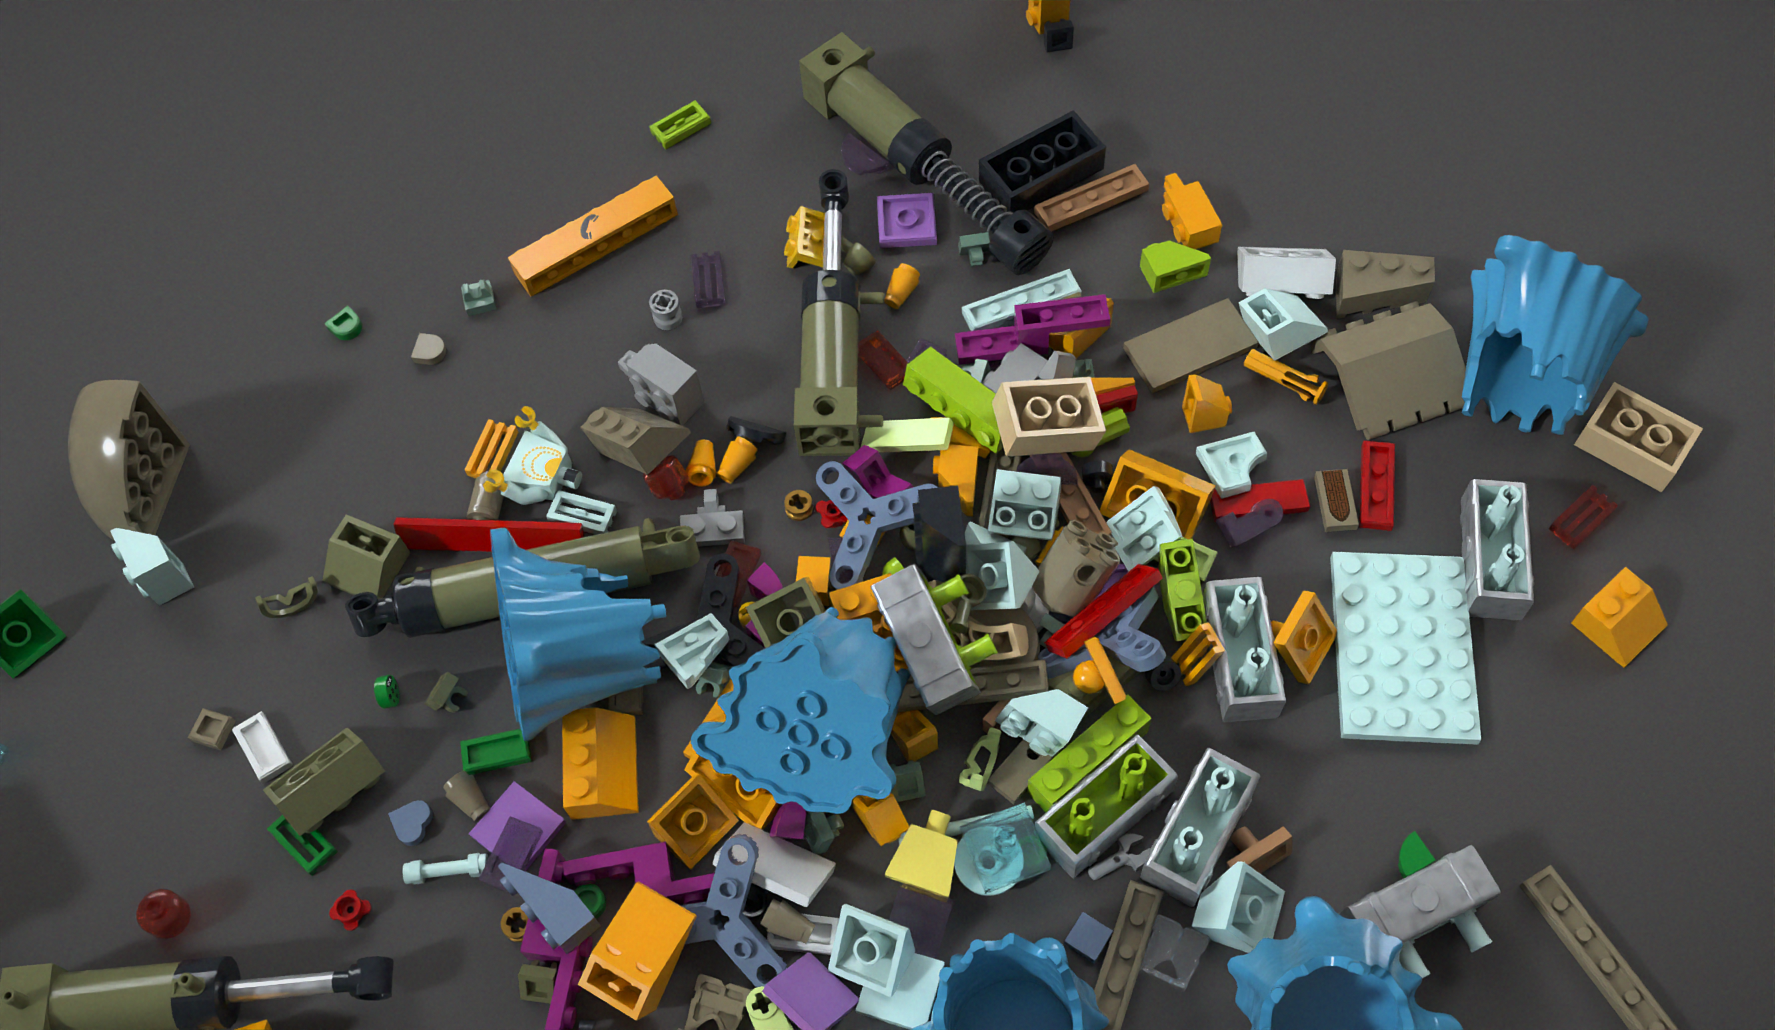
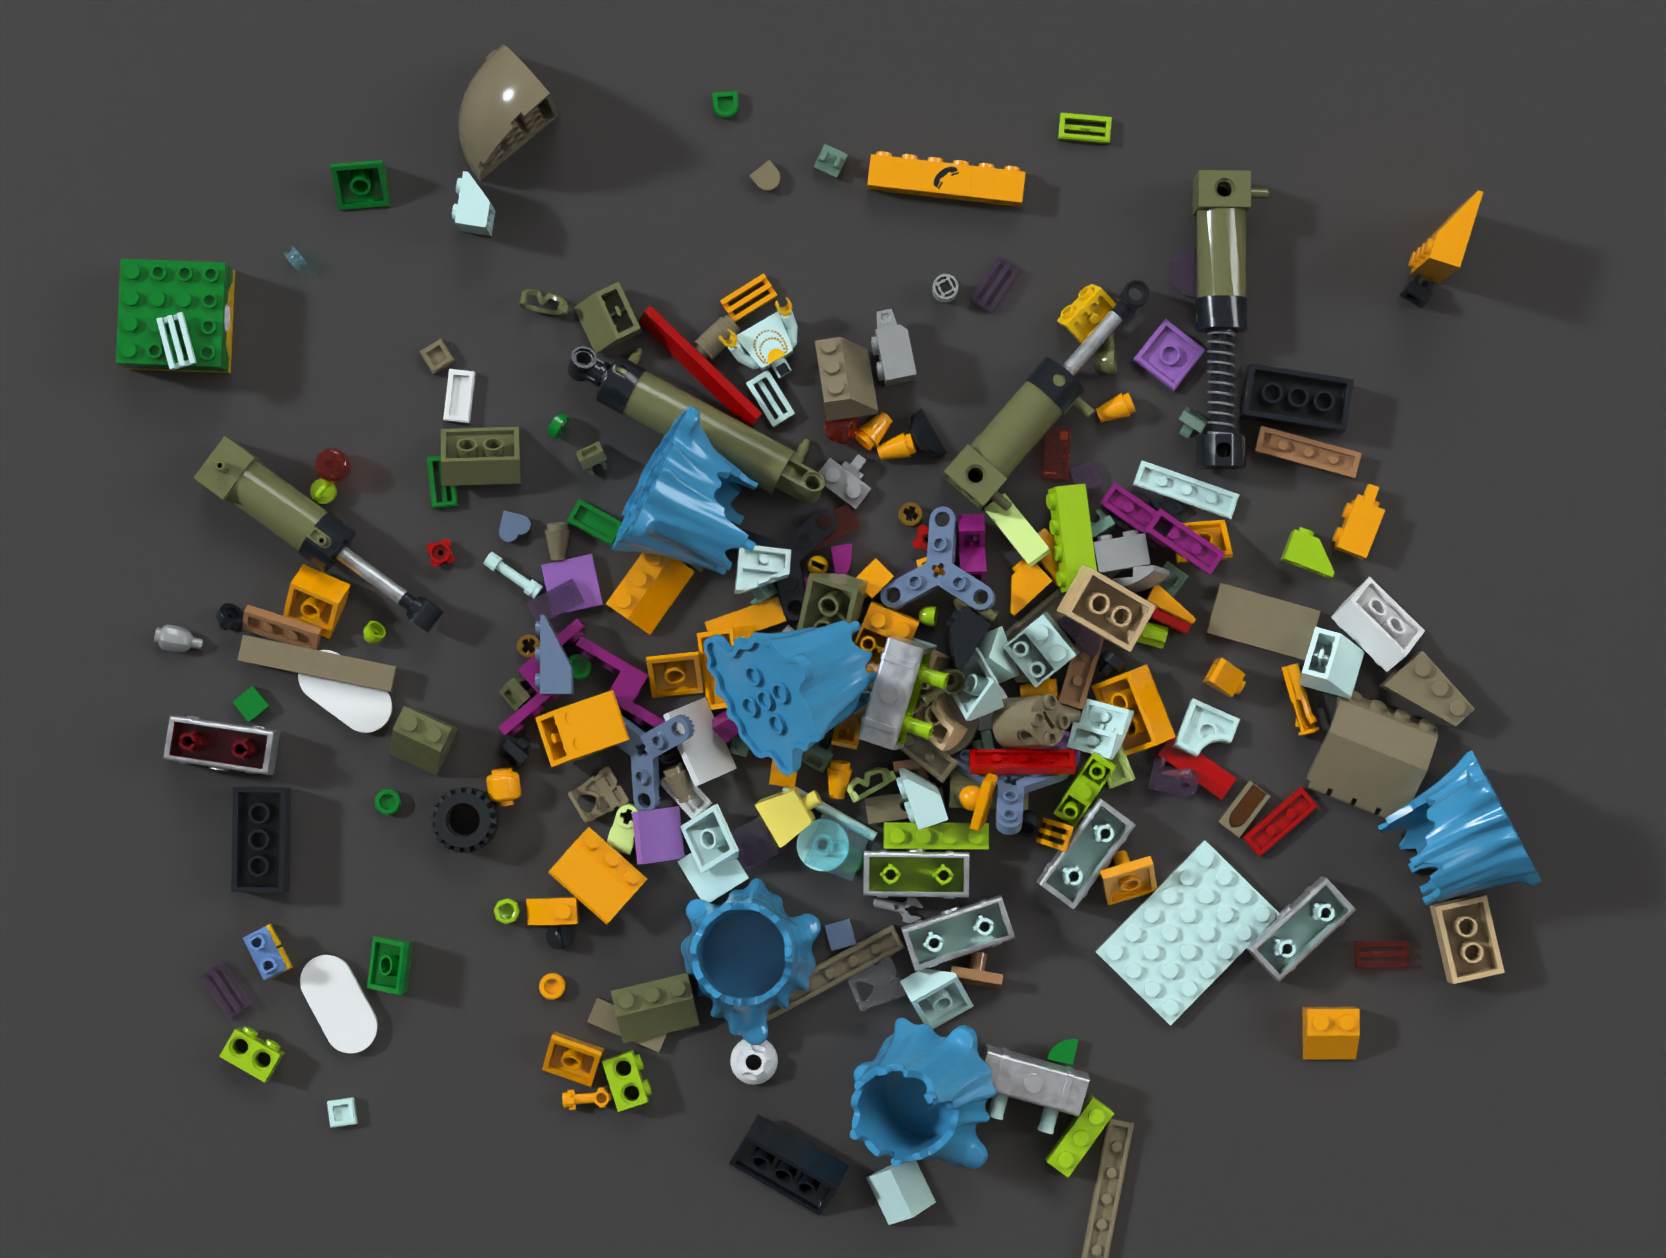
camera: 35 degrees right, 25 degrees up
(173, 949) = (323, 491): none -> lime tile
(945, 785) = (838, 778): none -> light orange cone
(1519, 926) = (1079, 1136): none -> lime brick

